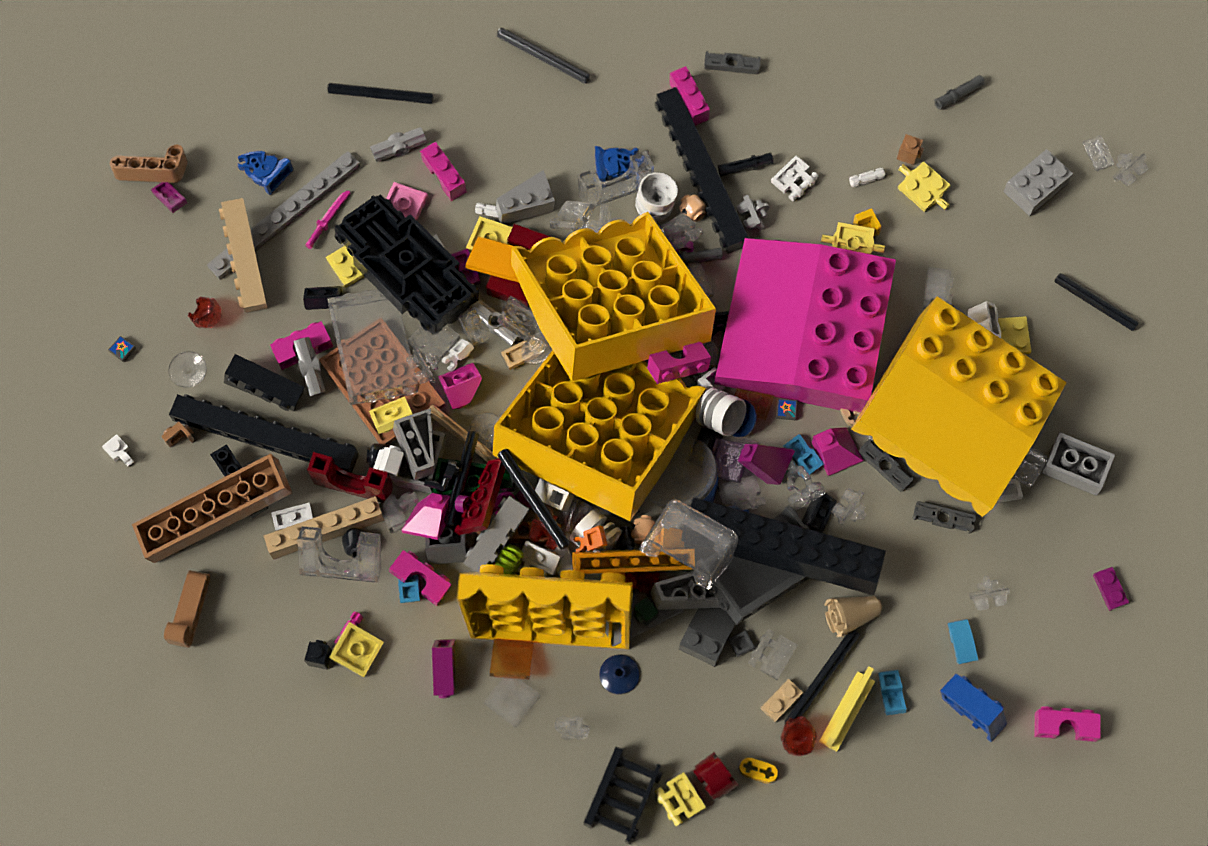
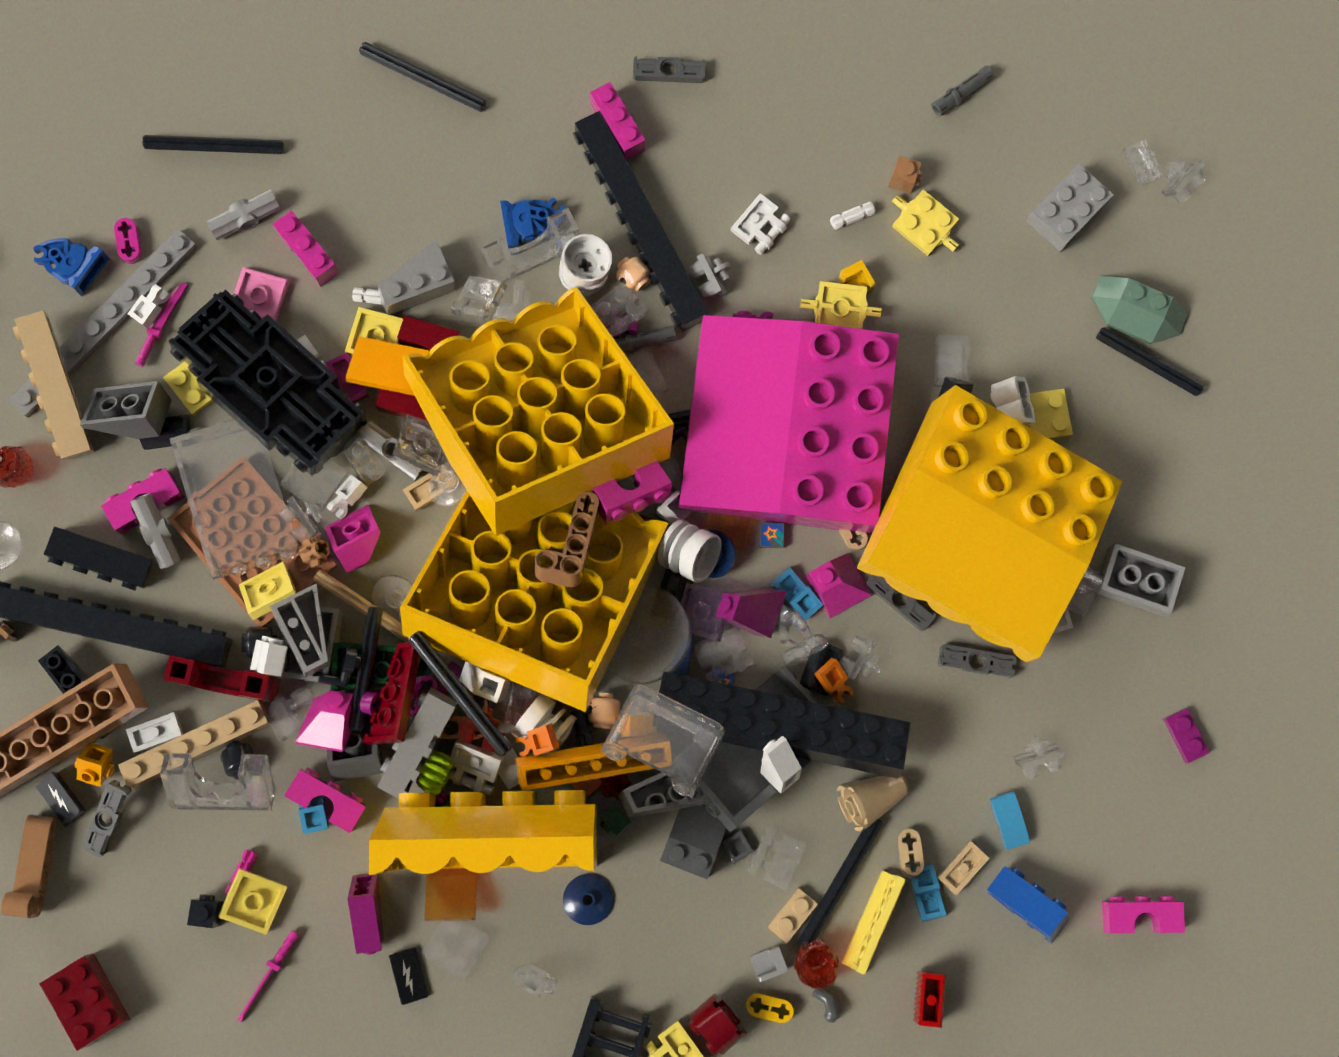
camera: 15 degrees left, 10 degrees up
(214, 561) = (60, 798): none -> black slope
(218, 714) = (84, 1001): none -> dark red brick
(243, 587) = (99, 831): none -> dark grey piece
(244, 535) = (95, 764): none -> light orange brick
(298, 277) = (128, 410): none -> dark grey slope
(304, 157) = (122, 241): none -> dark pink beam
(318, 206) = (147, 308): none -> white plate
(367, 702) = (274, 966): none -> dark pink sword
(430, 390) = (314, 551): none -> medium nougat gear
(472, 719) = (408, 976): none -> black slope
(626, 407) = (575, 539): none -> medium nougat beam
(745, 164) = (696, 209): black pin -> none
(760, 735) = (768, 963): none -> light grey panel
(780, 572) = (780, 764): none -> white slope
(808, 771) = (831, 1004): none -> dark grey arm
(827, 519) = (832, 680): none -> orange plate
(876, 659) = (916, 853): none -> tan beam
(888, 772) = (929, 999): none -> red brick
(922, 674) = (963, 868): none -> tan plate
(1089, 261) = (1138, 309): none -> sand green wedge

